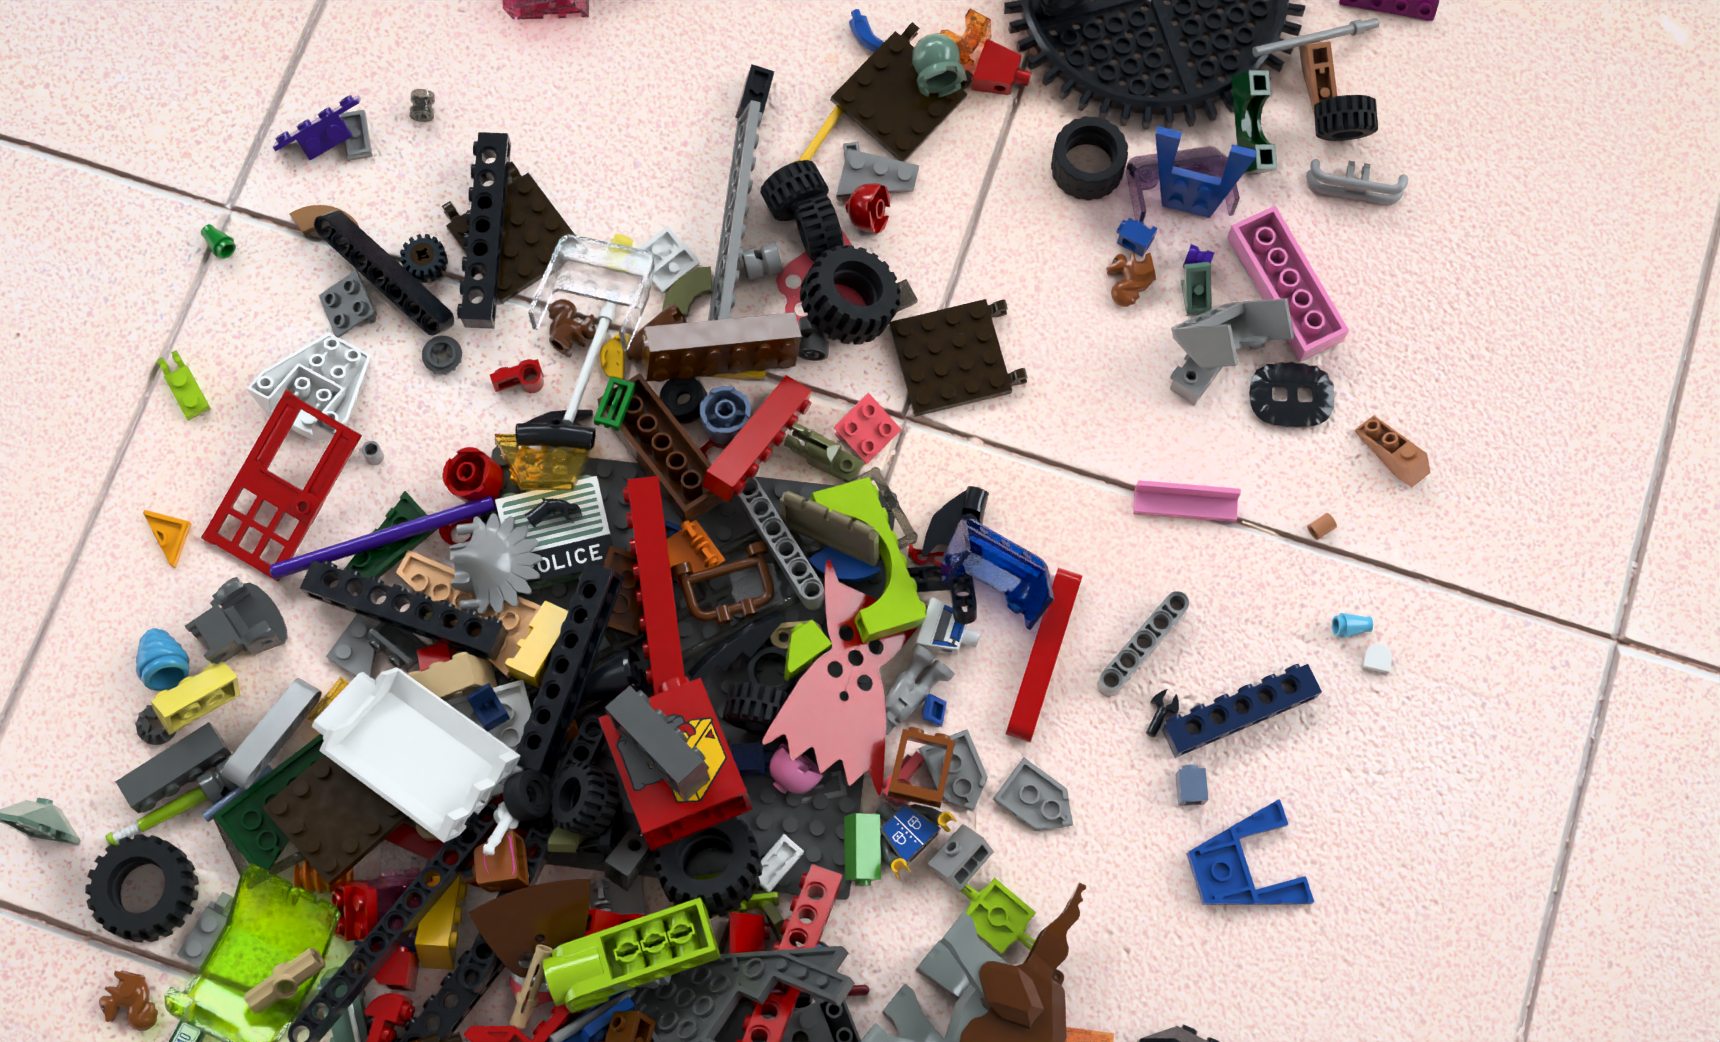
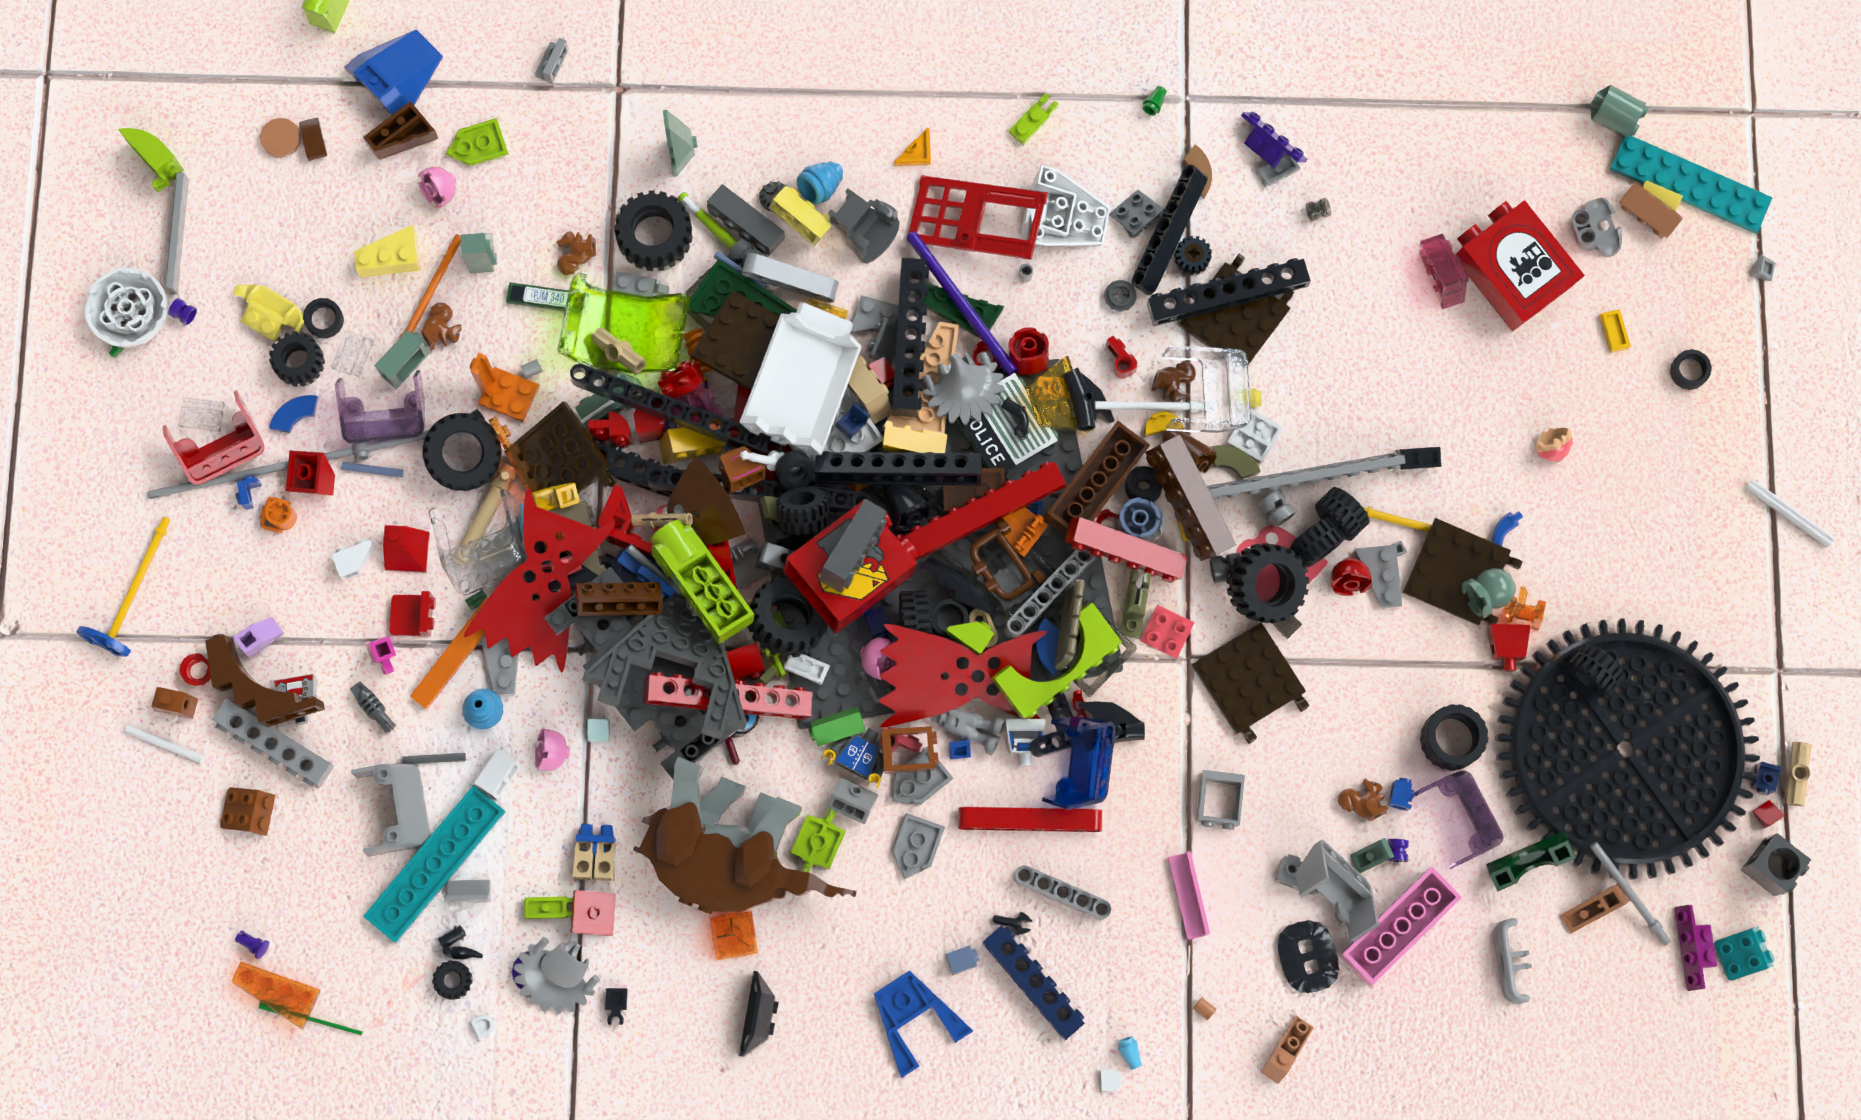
camera: 70 degrees right, 5 degrees up
(608, 422) = (1124, 426): green tile -> none
(1093, 413) = (1225, 778): none -> light grey window
(1192, 190) = (1452, 823): blue wing -> none
(1346, 117) = (1562, 935): black tyre -> none

